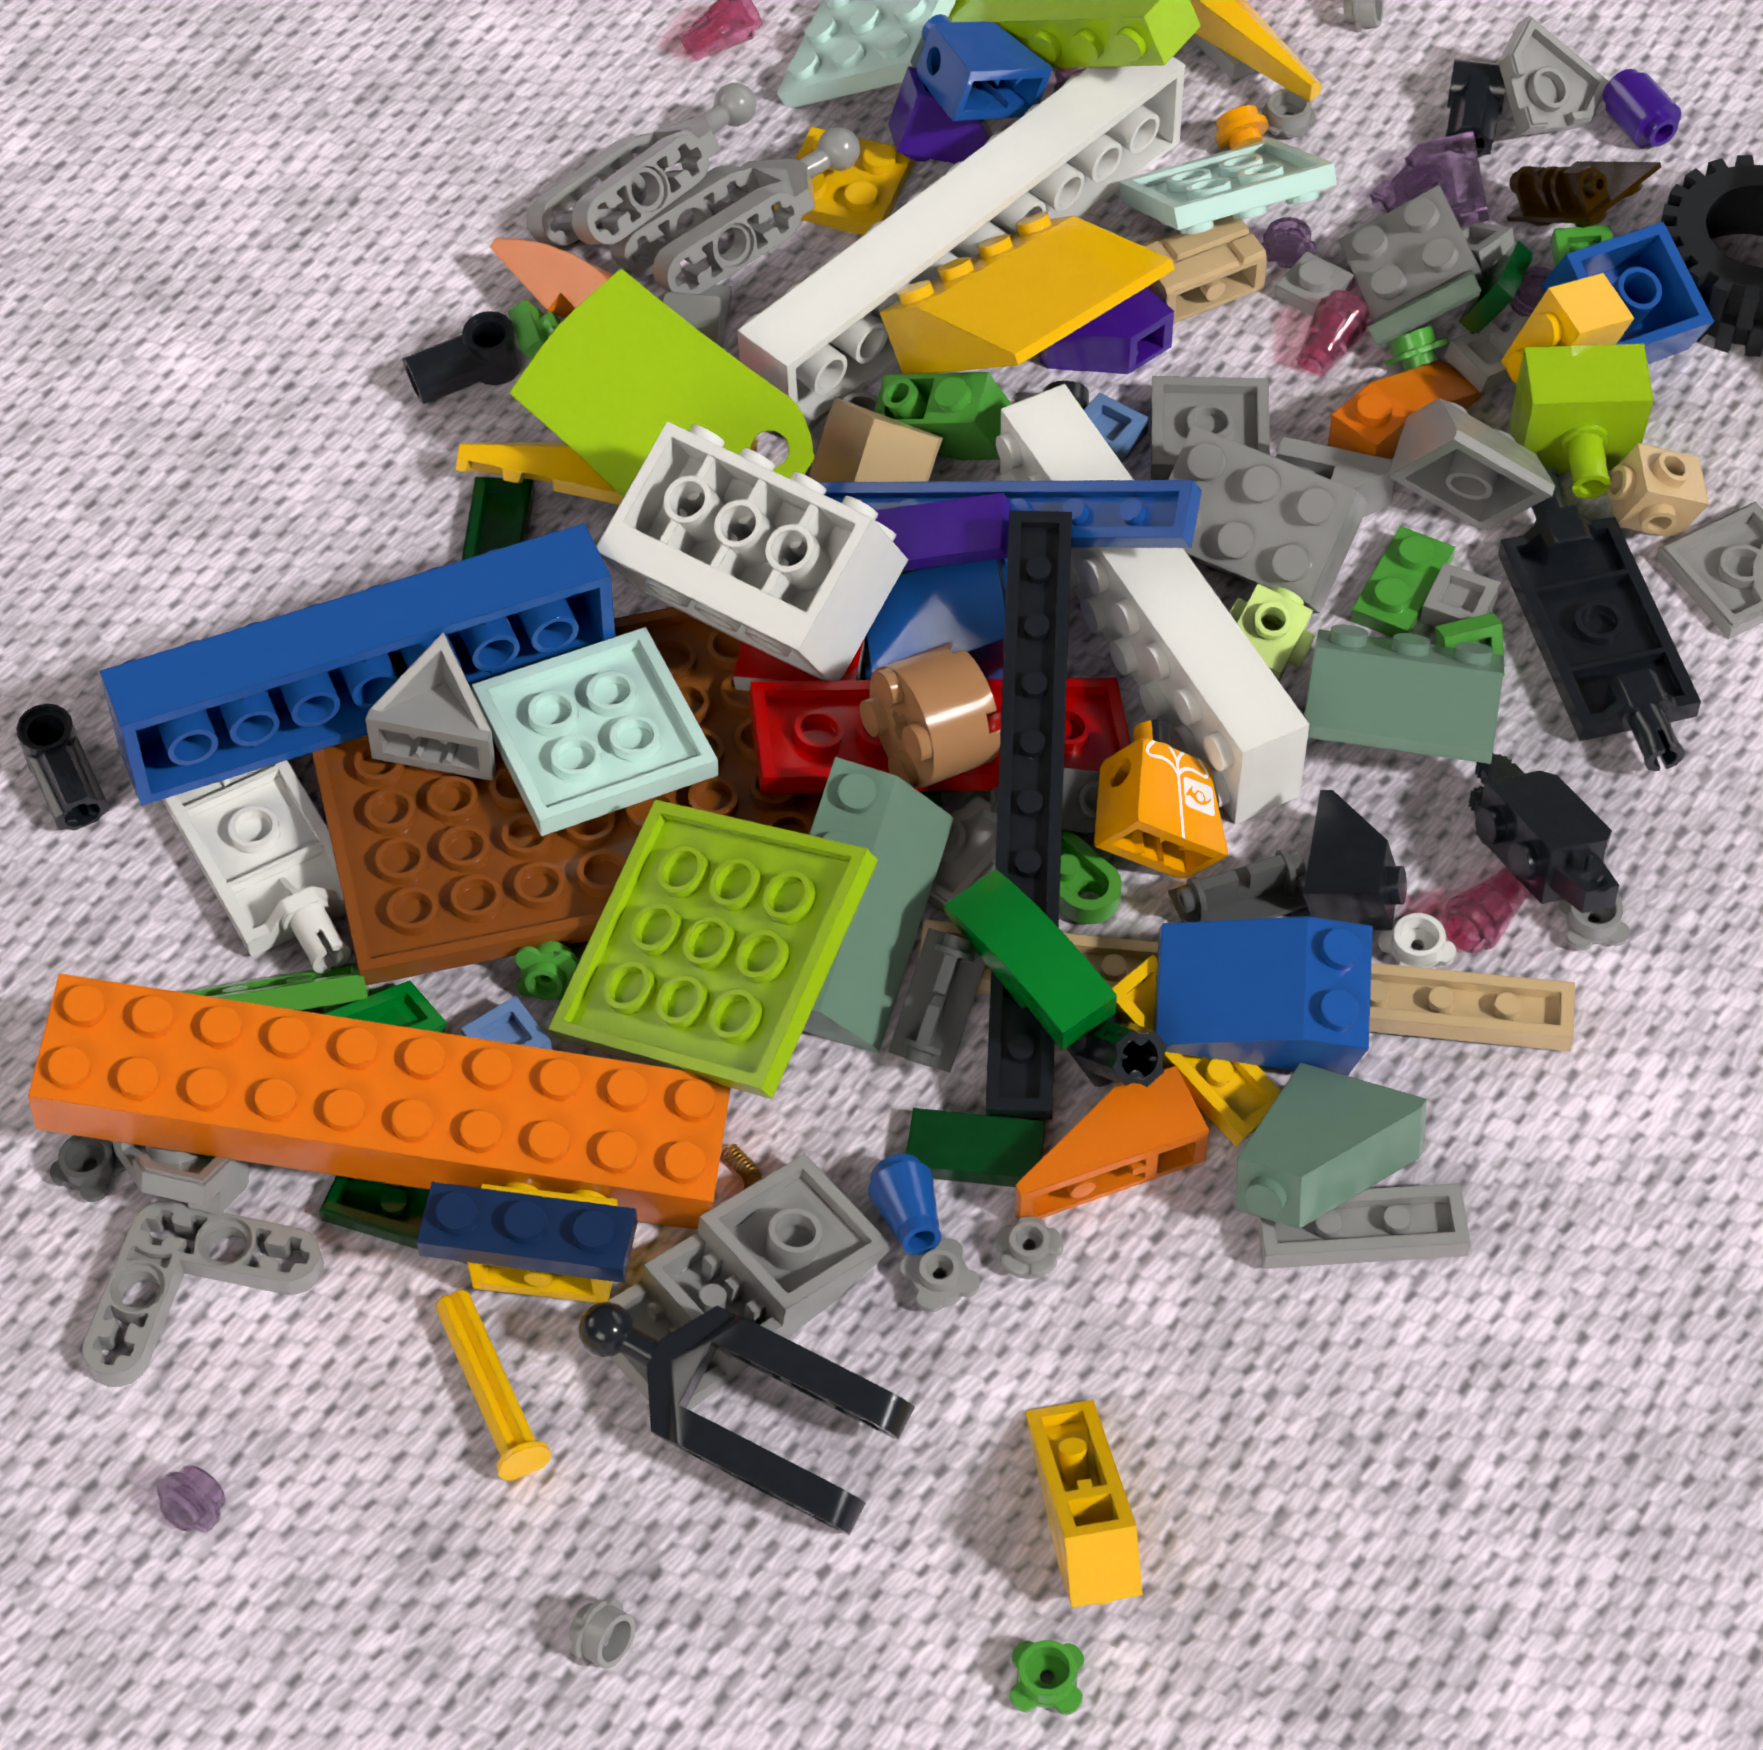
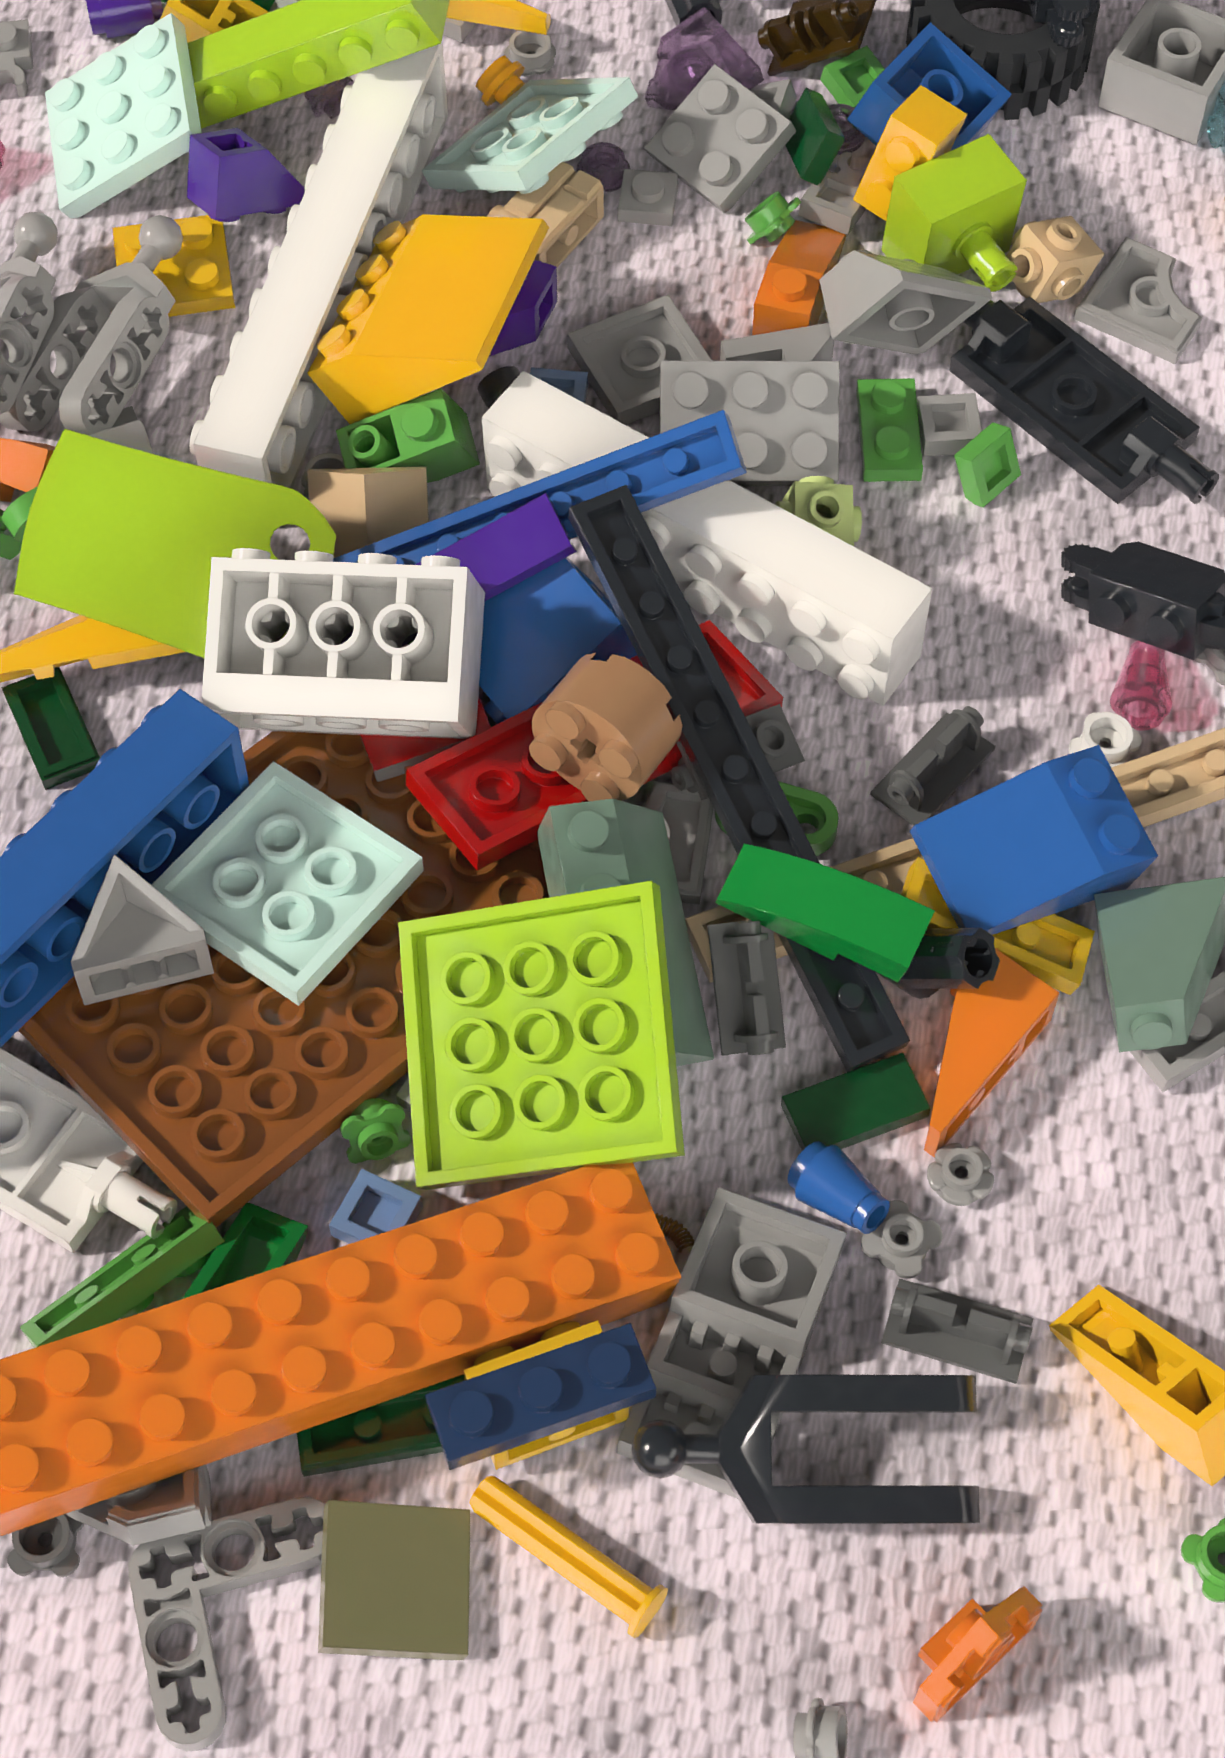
camera: 30 degrees left, 5 degrees up
(335, 1331) = (394, 1581): none -> olive tile
(771, 1627) = (971, 1647): none -> orange plate
(937, 1372) = (957, 1331): none -> dark grey hinge
(979, 70) = (260, 112): blue torso -> none
(1159, 806) = (829, 718): light orange torso -> none
(1333, 330) = (692, 230): clear pink cone -> none
(1351, 868) = (1019, 700): black slope -> none
(1404, 694) = (972, 524): sand green slope -> none
(1424, 308) = (767, 177): tile -> none

